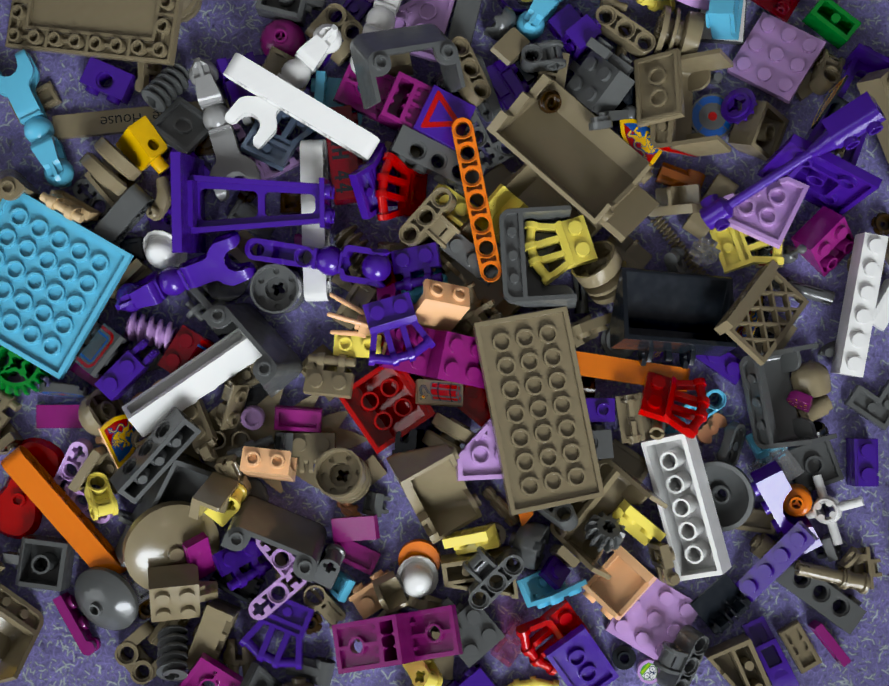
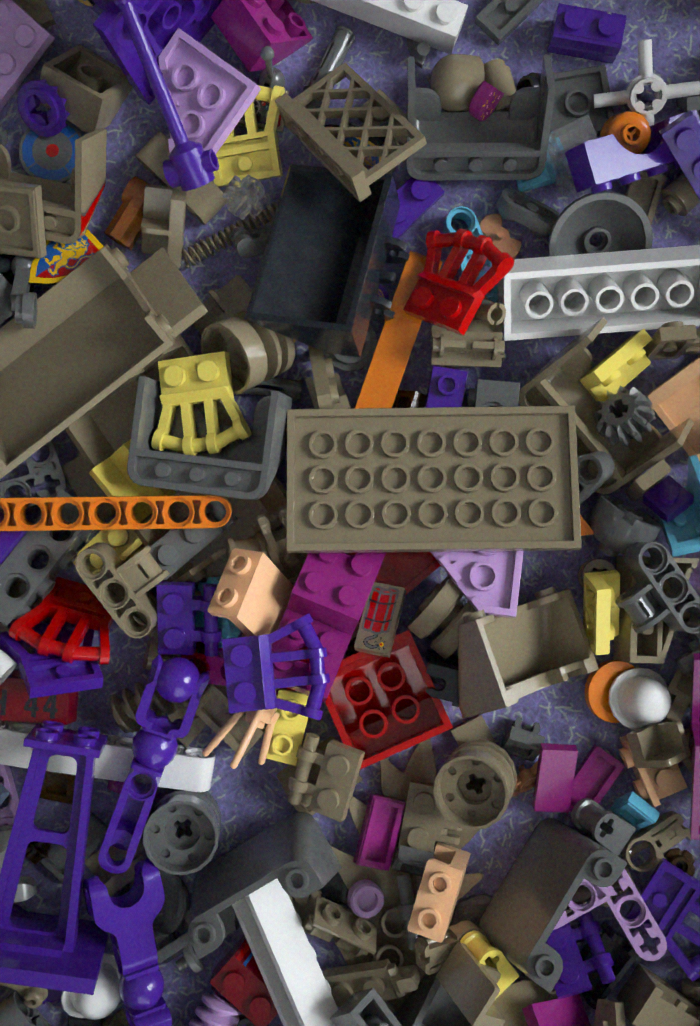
camera: 80 degrees left, 0 degrees up
(499, 505) = (554, 562): dark tan axle -> none
(629, 460) = (526, 361): dark tan tile -> none

